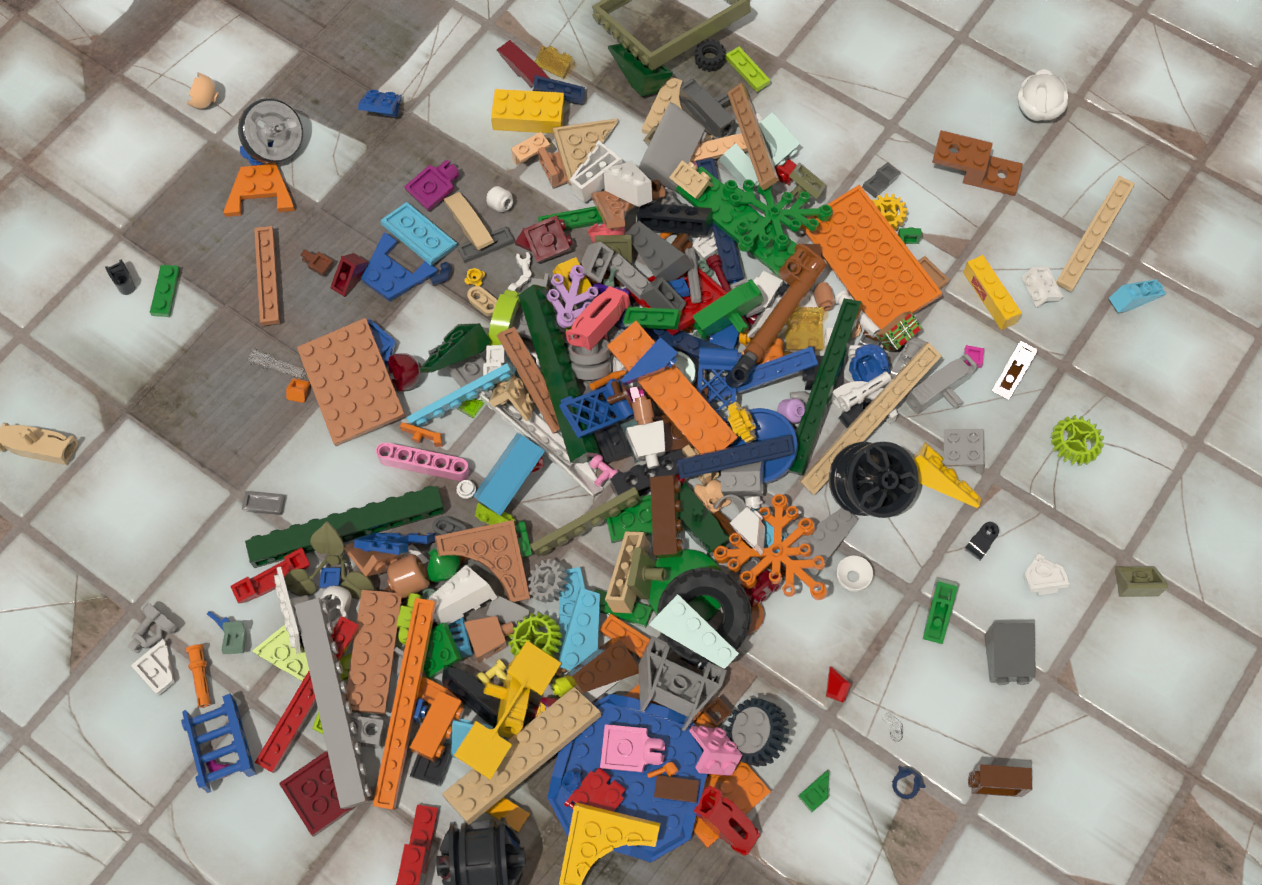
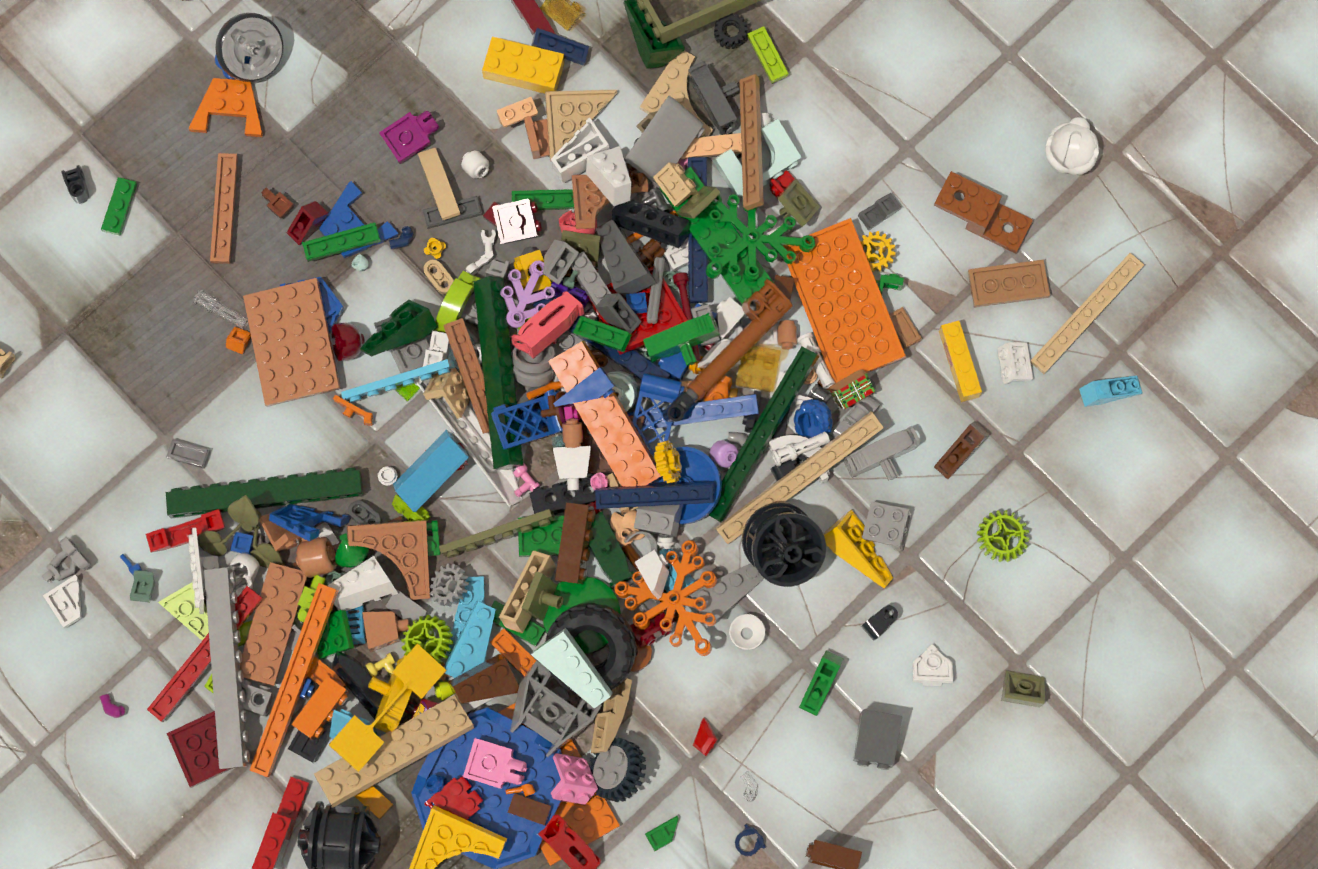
camera: 10 degrees right, 10 degrees up
(197, 666) = (105, 609): orange pin -> none
(239, 745) = (134, 691): blue fence -> none
(384, 103) = (369, 28): blue plate -> none
(384, 284) = (341, 242): none -> green tile
(405, 301) = (360, 263): none -> light aqua hinge
(416, 455) = (343, 433): bright pink beam -> none
(418, 233) = (385, 188): medium azure tile -> none
(612, 443) = (540, 455): black plate -> none
(677, 453) = (599, 480): none -> bright pink plate
(717, 188) = (698, 202): none -> olive plate
(717, 706) = (584, 736): reddish brown piece -> none
(738, 681) = (609, 721): none -> tan slope
(975, 354) = (923, 427): dark pink plate -> none
(1016, 219) = (1008, 283): none -> medium nougat plate

